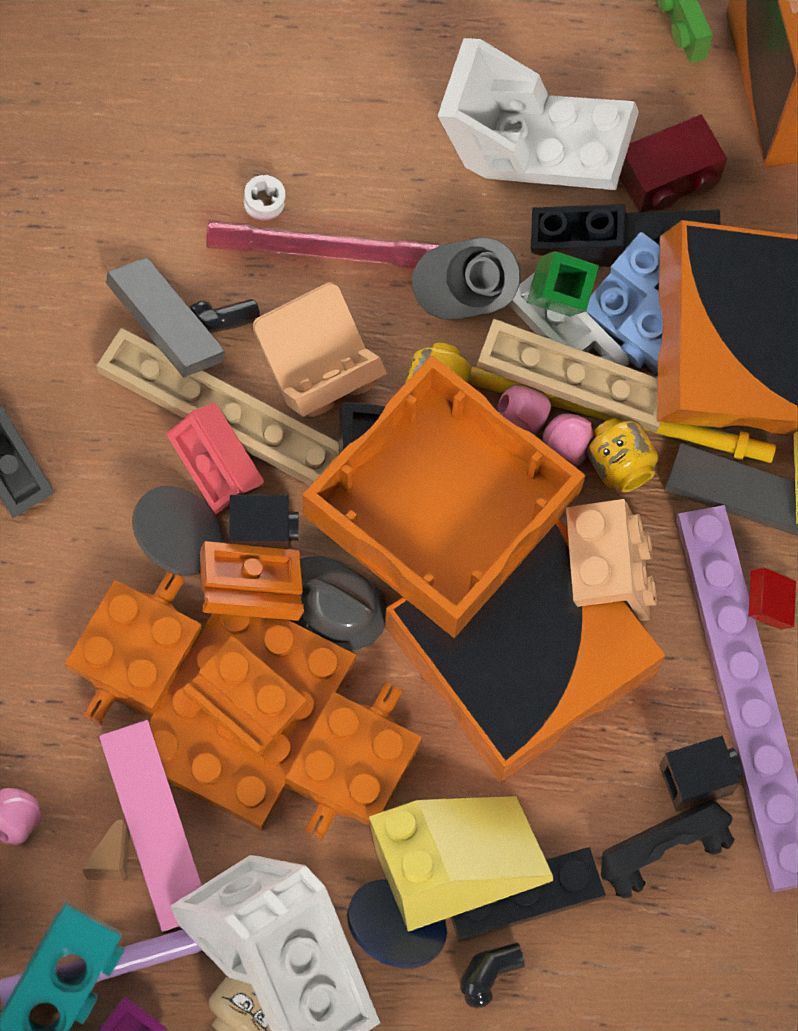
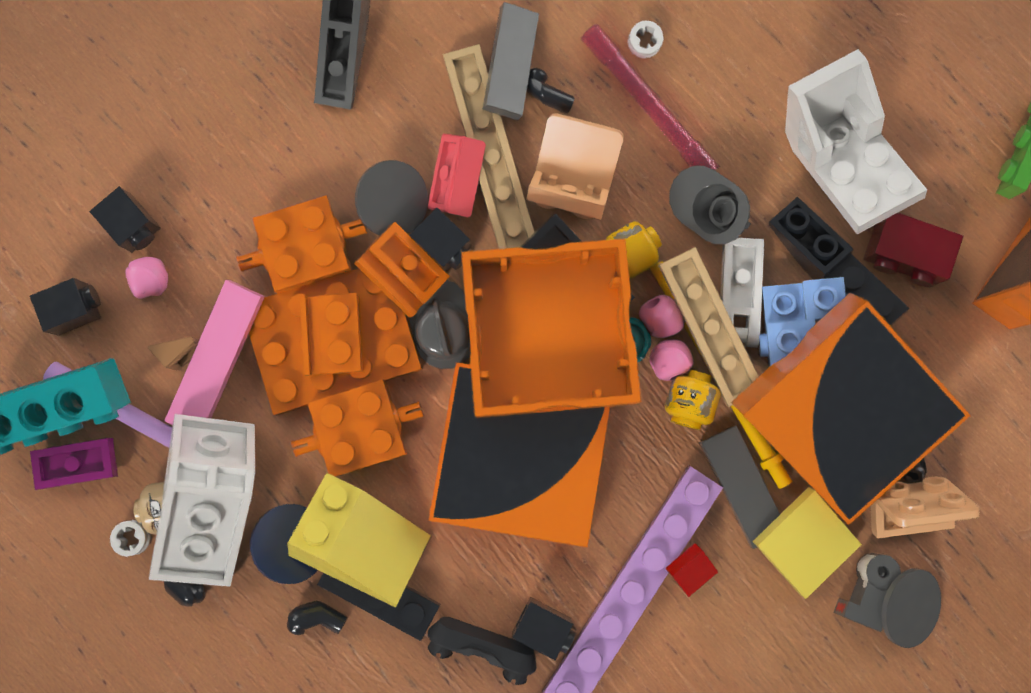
camera: 50 degrees right, 15 degrees up
(562, 284) = (759, 265): green brick -> none
(610, 556) = (615, 459): light nougat bracket -> none

